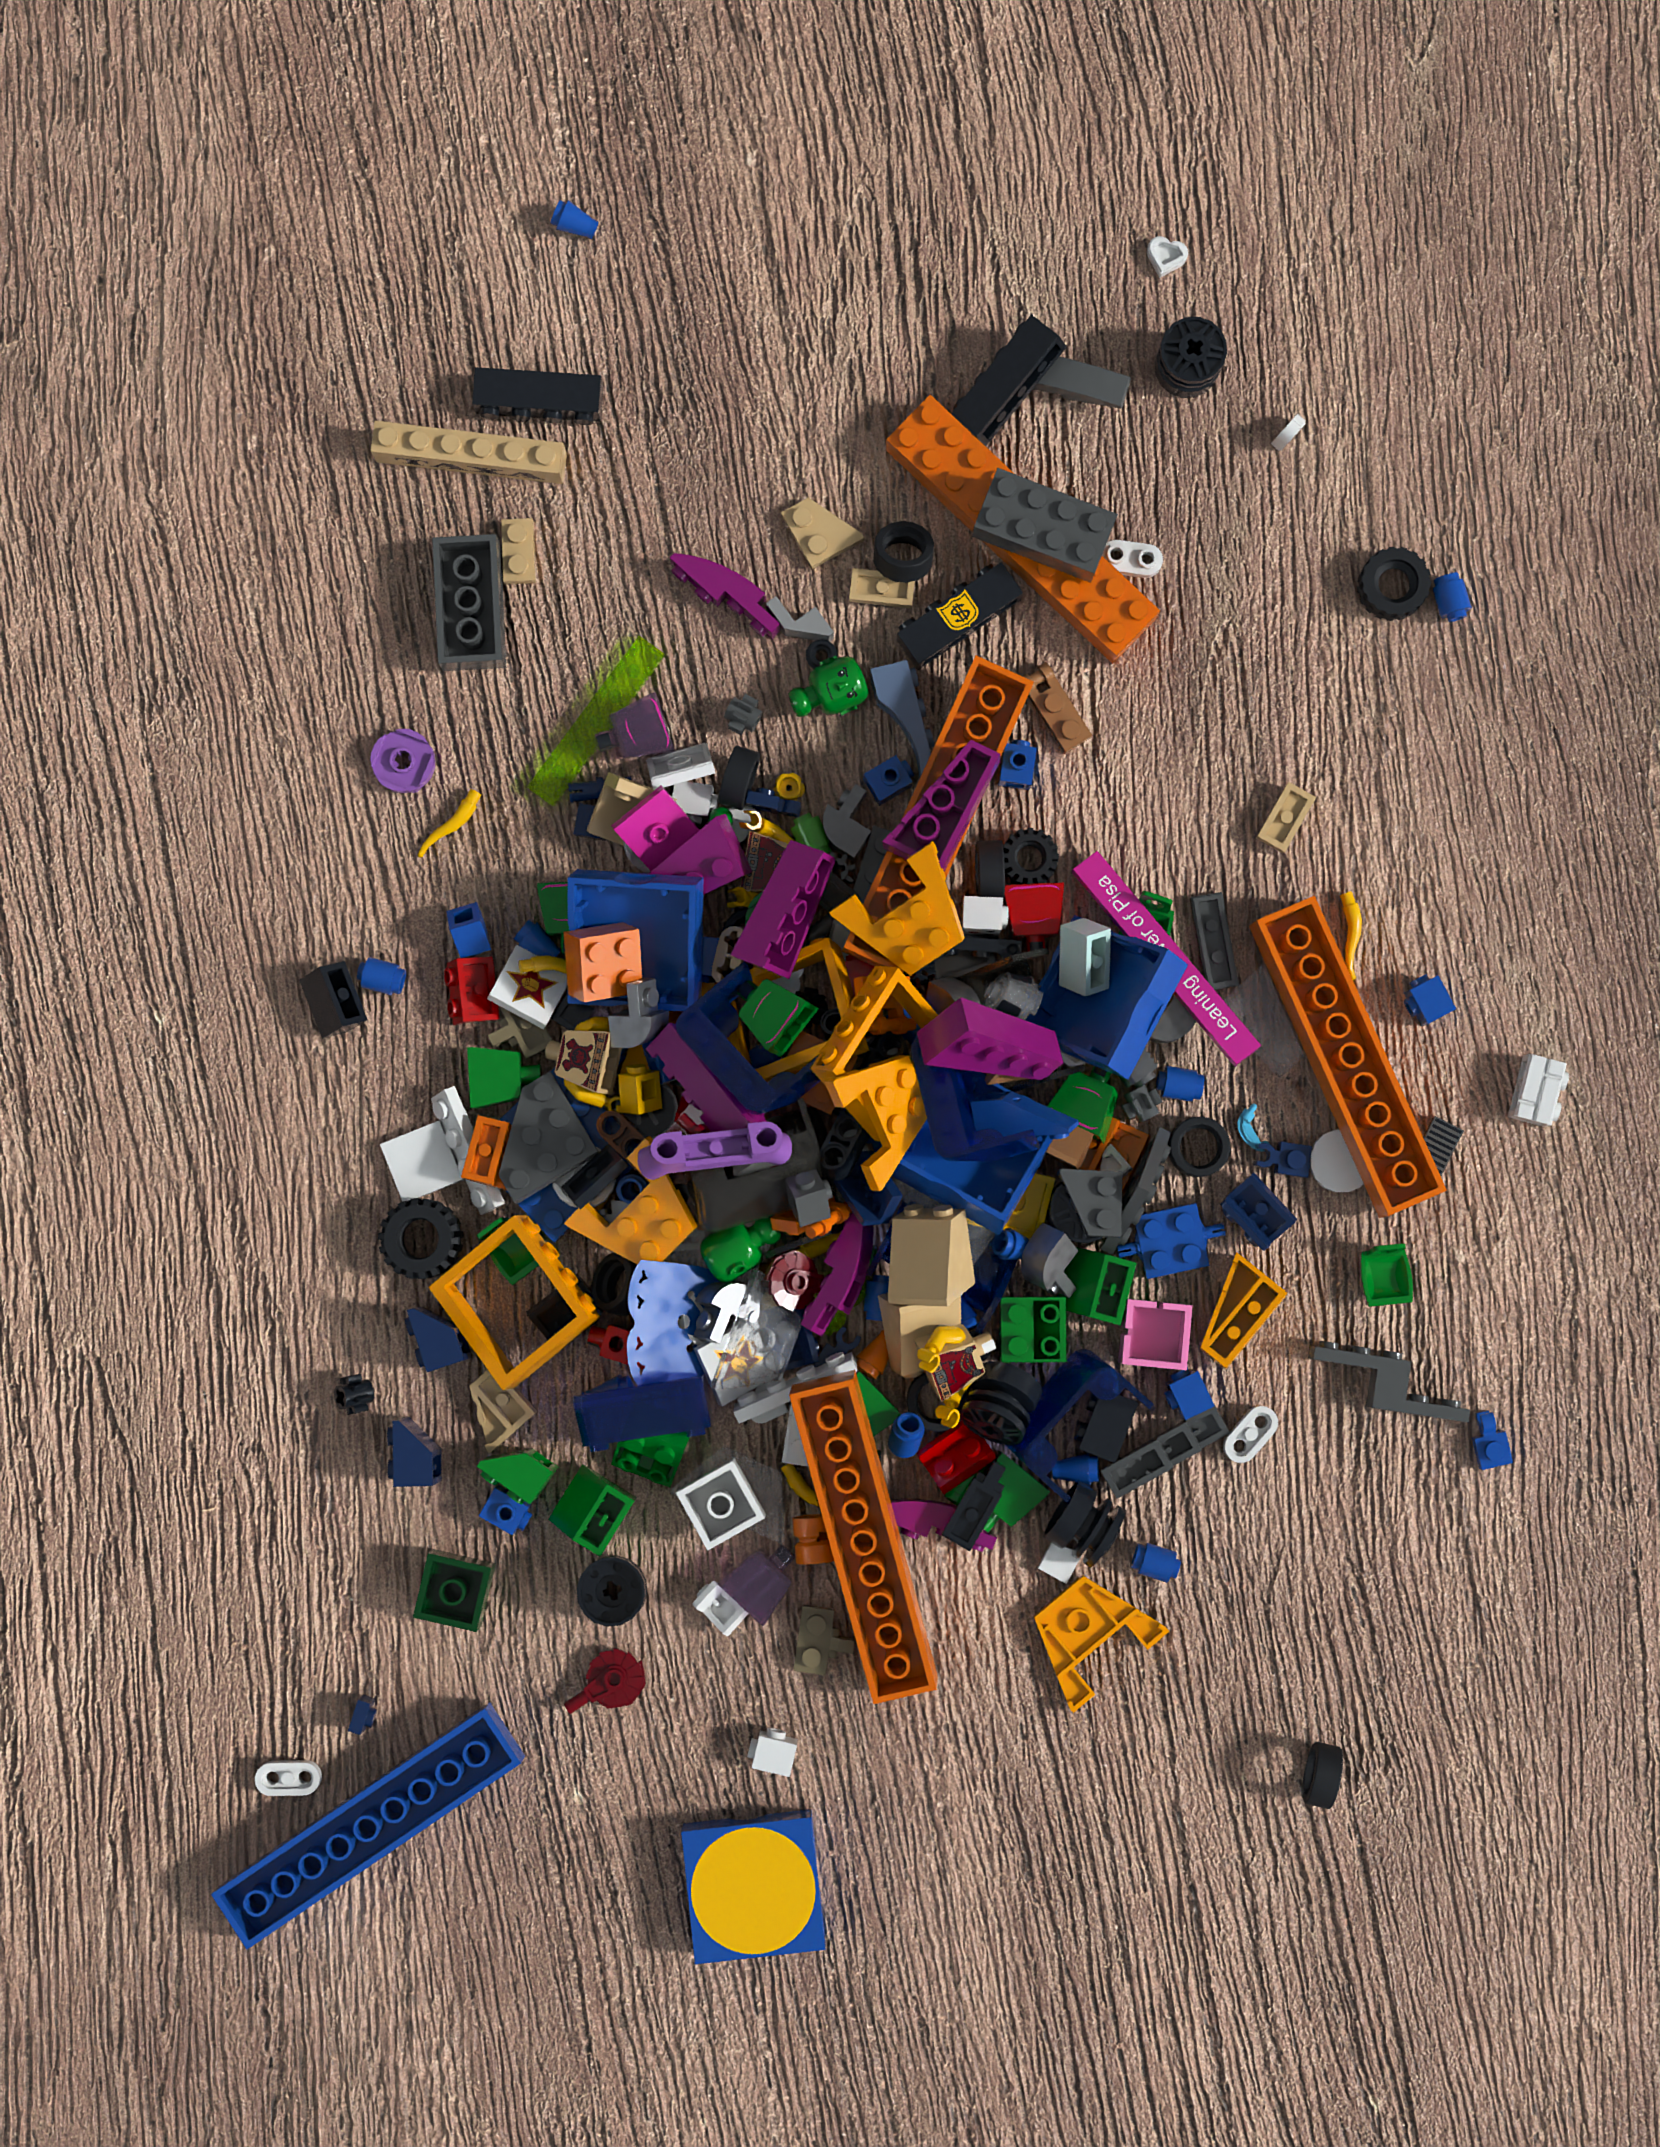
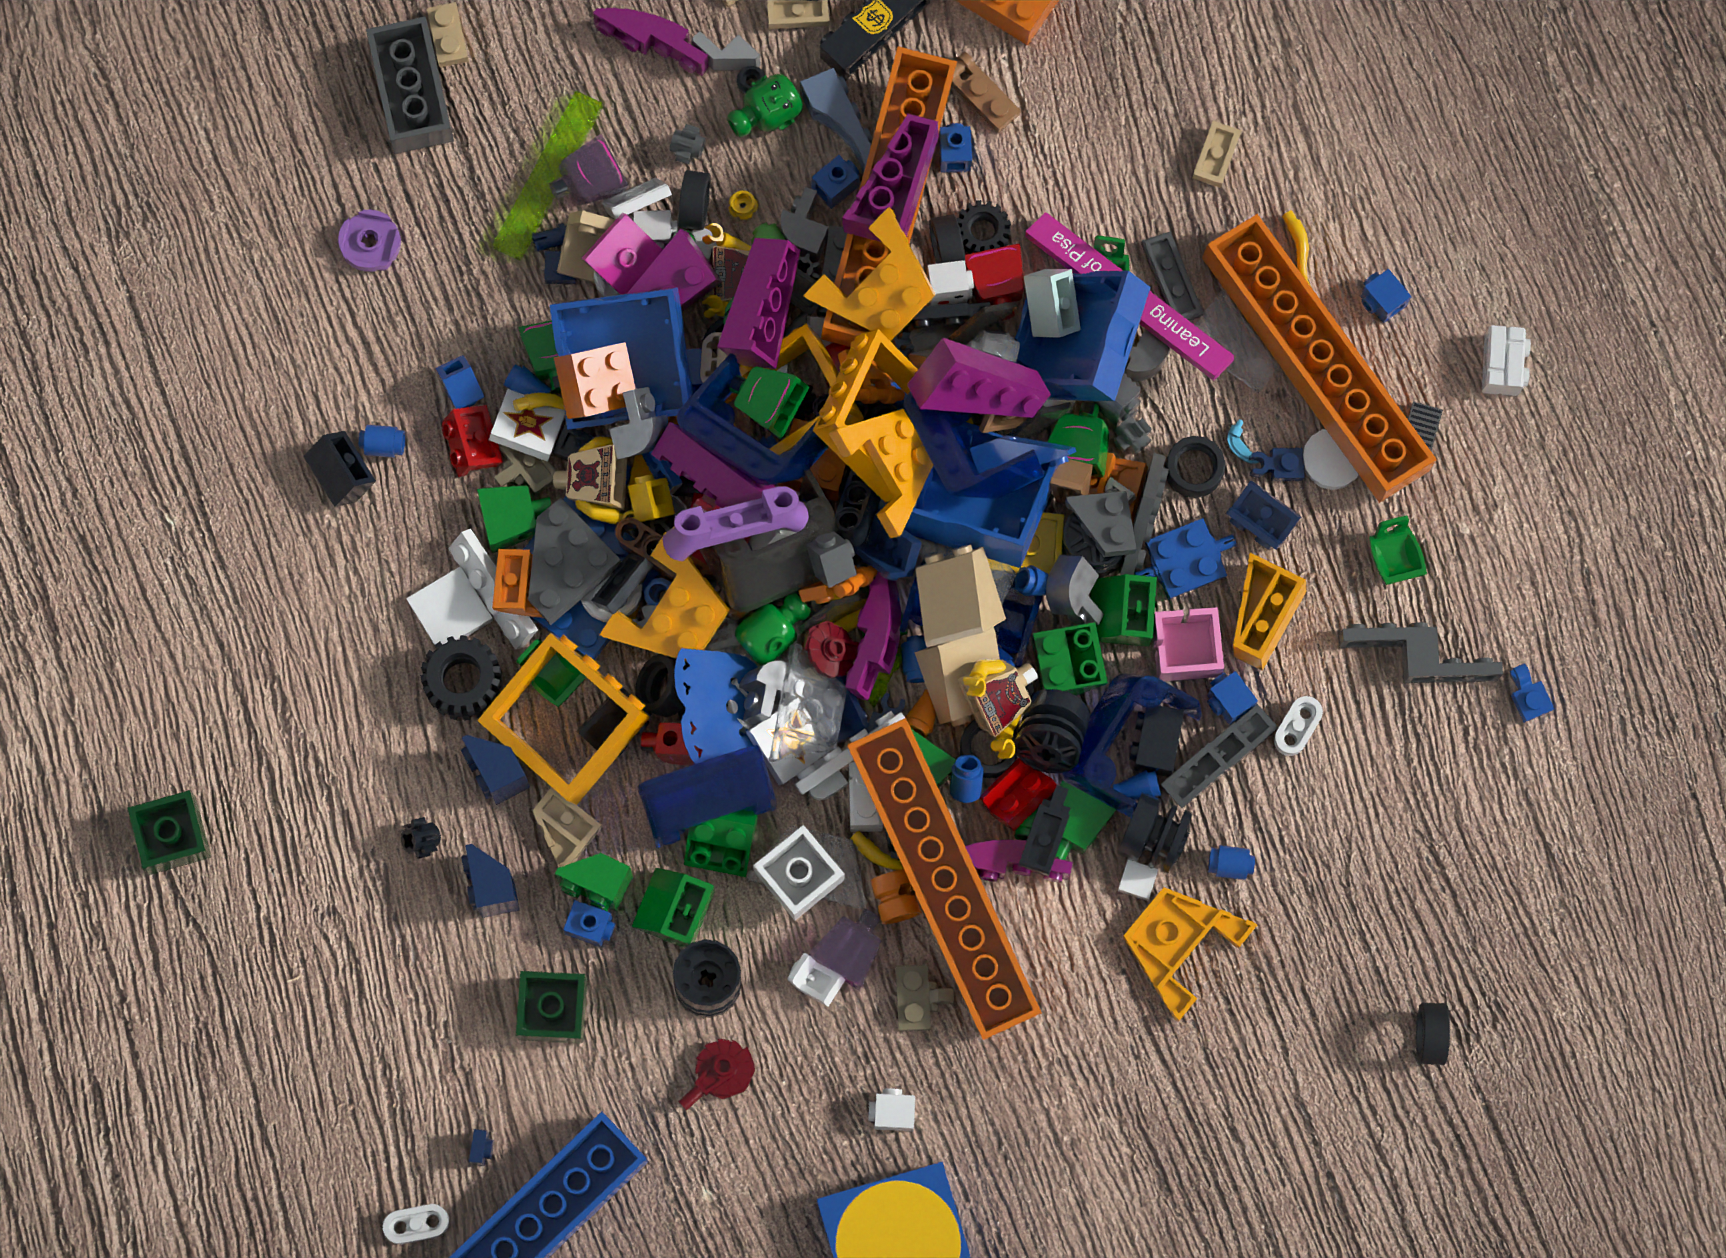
camera: 15 degrees left, 10 degrees down
(106, 1346) = (169, 832): none -> dark green brick
(459, 818) = (433, 283): yellow animal -> none
(765, 801) = (730, 220): dark blue plate -> none
(1180, 1083) = (1166, 411): blue brick -> none

